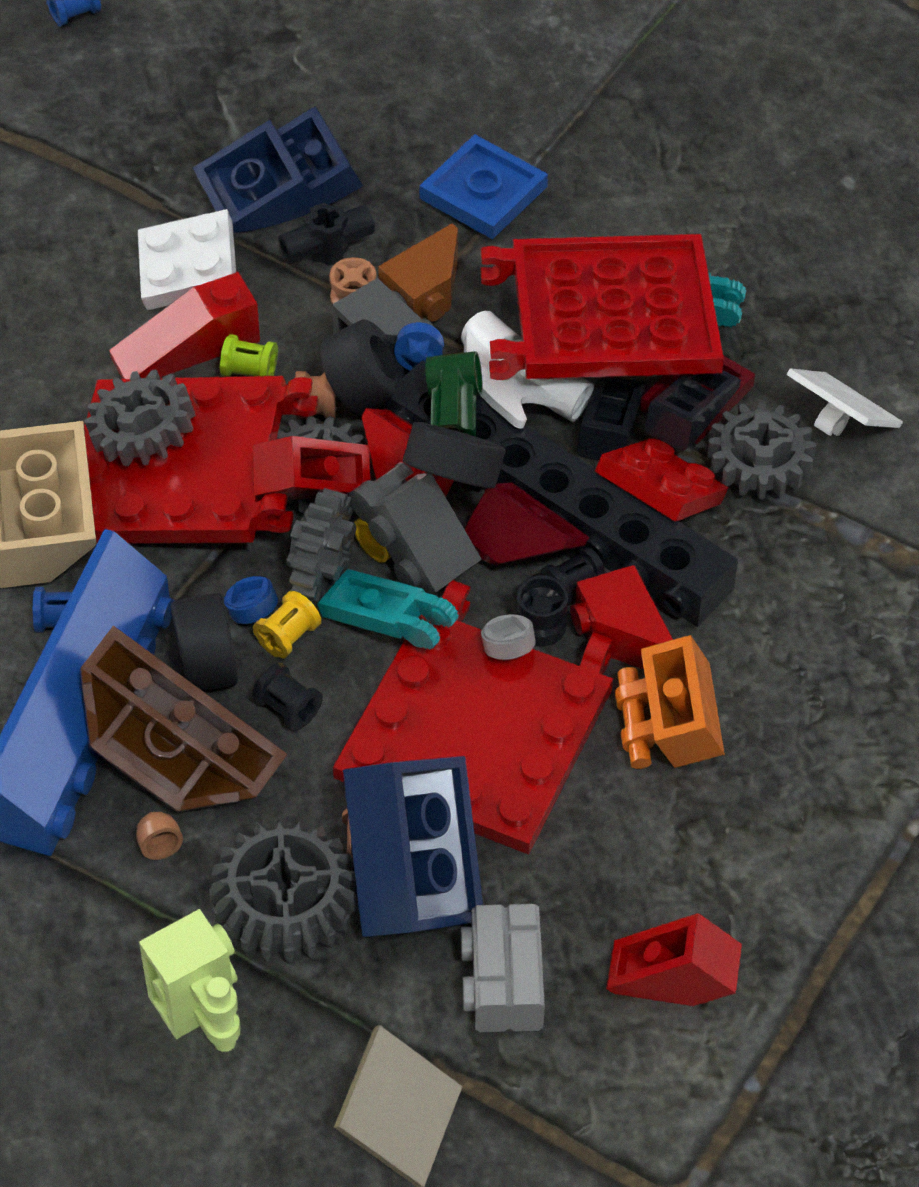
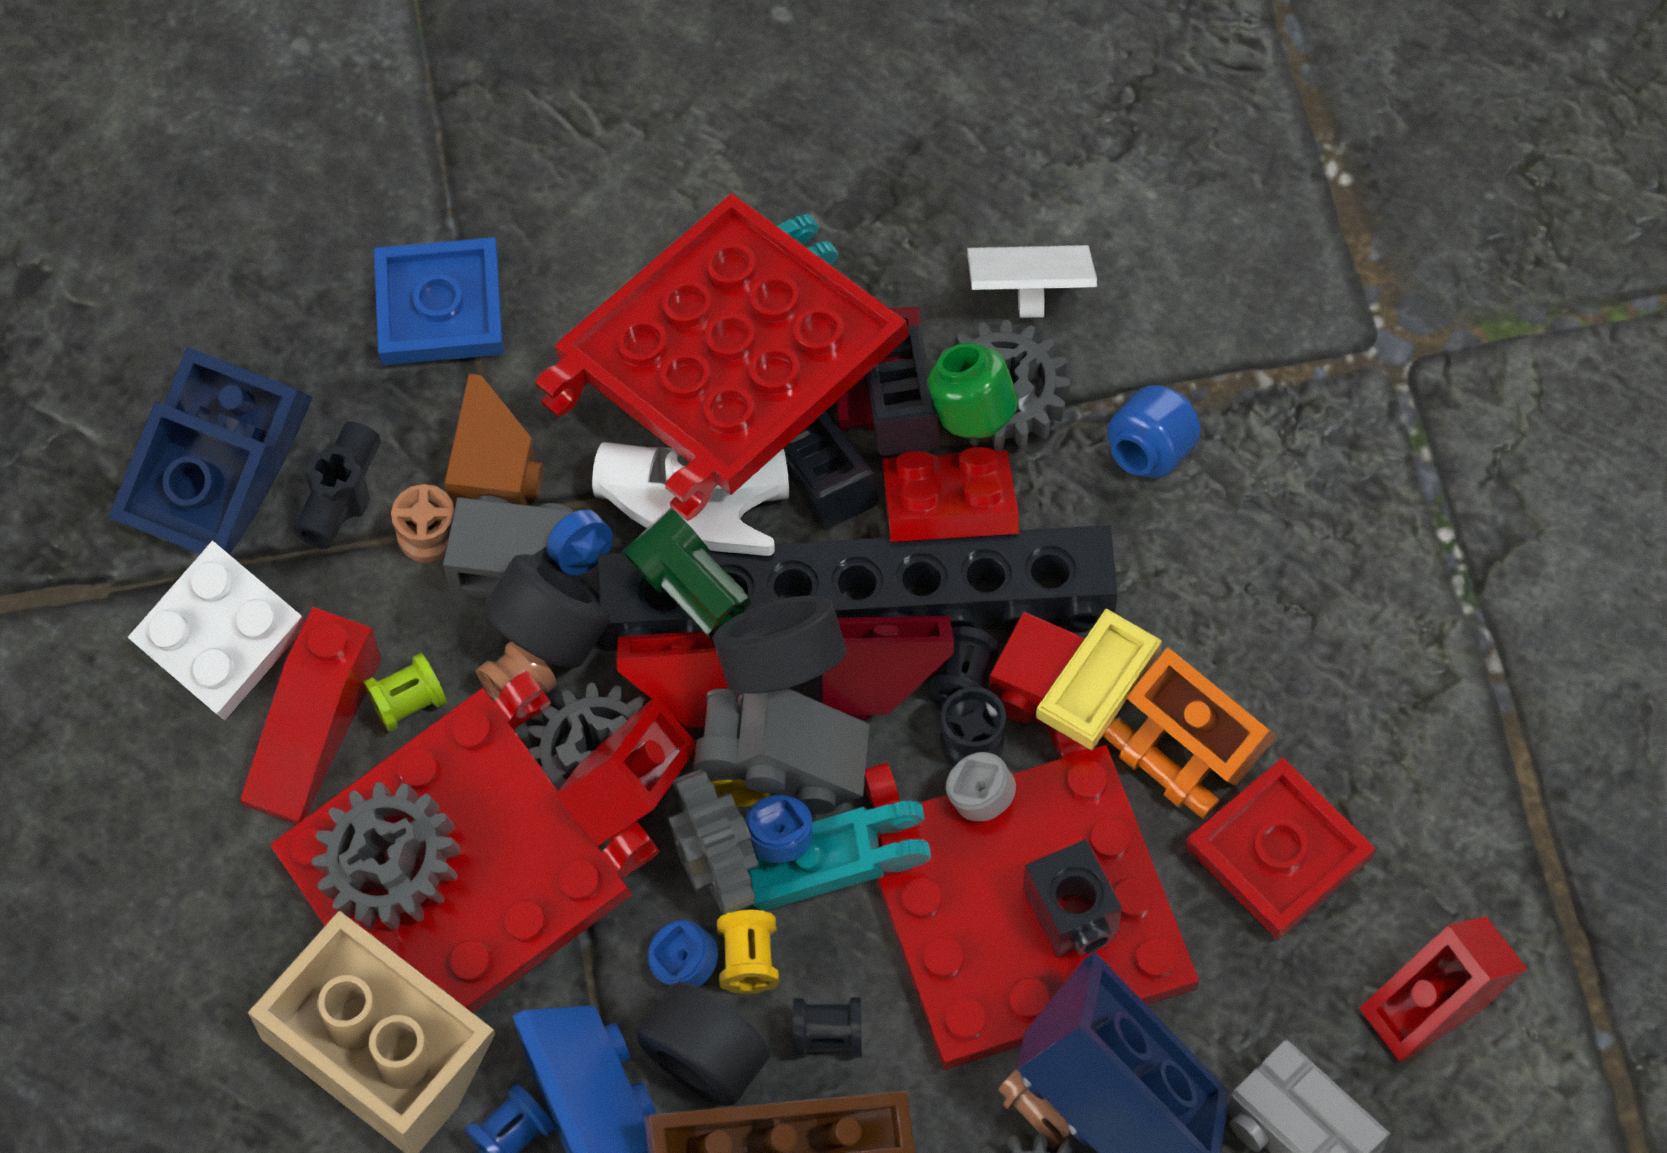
camera: 40 degrees left, 10 degrees up
(365, 565) = (780, 828): none -> blue tile
(494, 714) = (1066, 873): none -> black brick
(627, 628) = (1098, 679): none -> light yellow tile
(658, 814) = (1280, 848): none -> red plate
(725, 423) = (972, 391): none -> green head
(827, 538) = (1153, 432): none -> blue head

